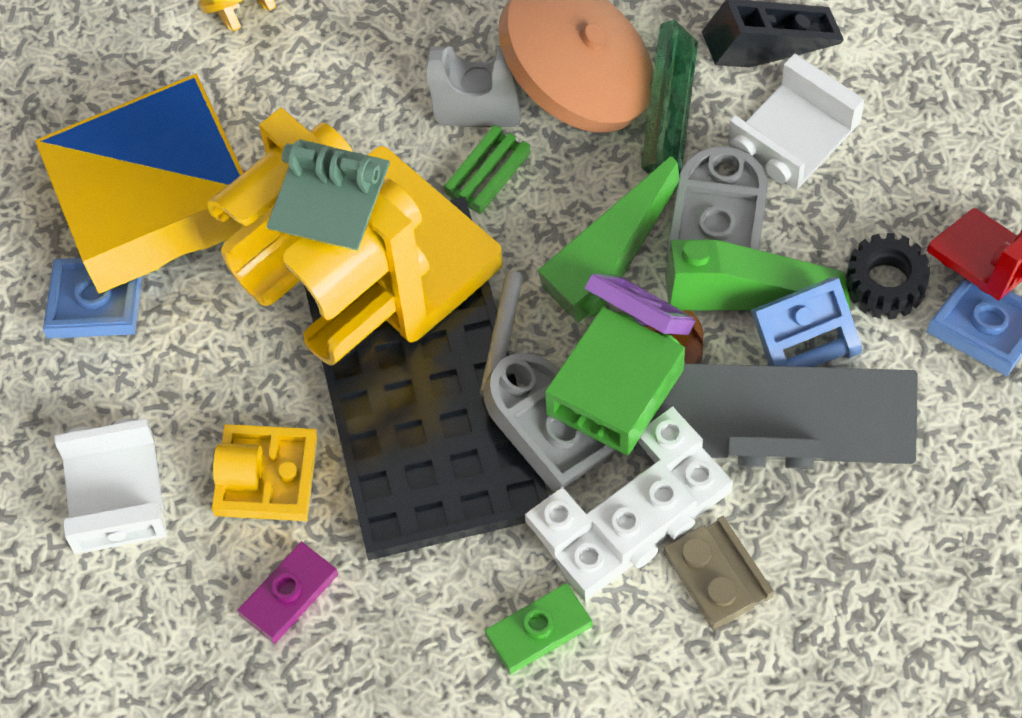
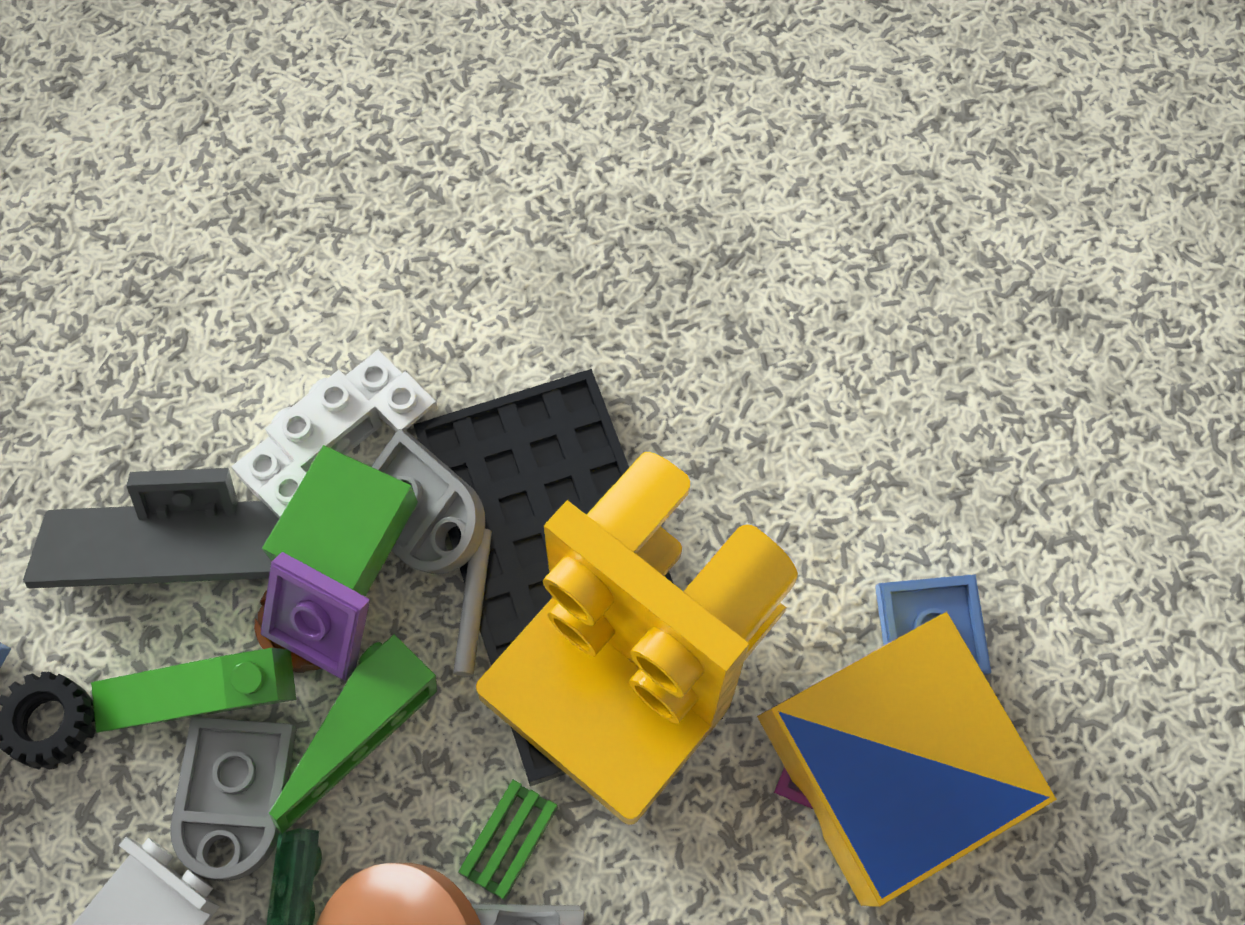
camera: 170 degrees right, 5 degrees up
(111, 485) = (855, 420): white panel -> none
(264, 472) = (710, 444): yellow plate -> none
(287, 592) = (663, 341): magenta plate -> none
(327, 193) = (645, 543): sand green hinge -> none
(538, 628) = (423, 326): bright green plate -> none
(718, 572) = (250, 388): dark tan plate -> none
(804, 317) = (140, 636): plate -> none

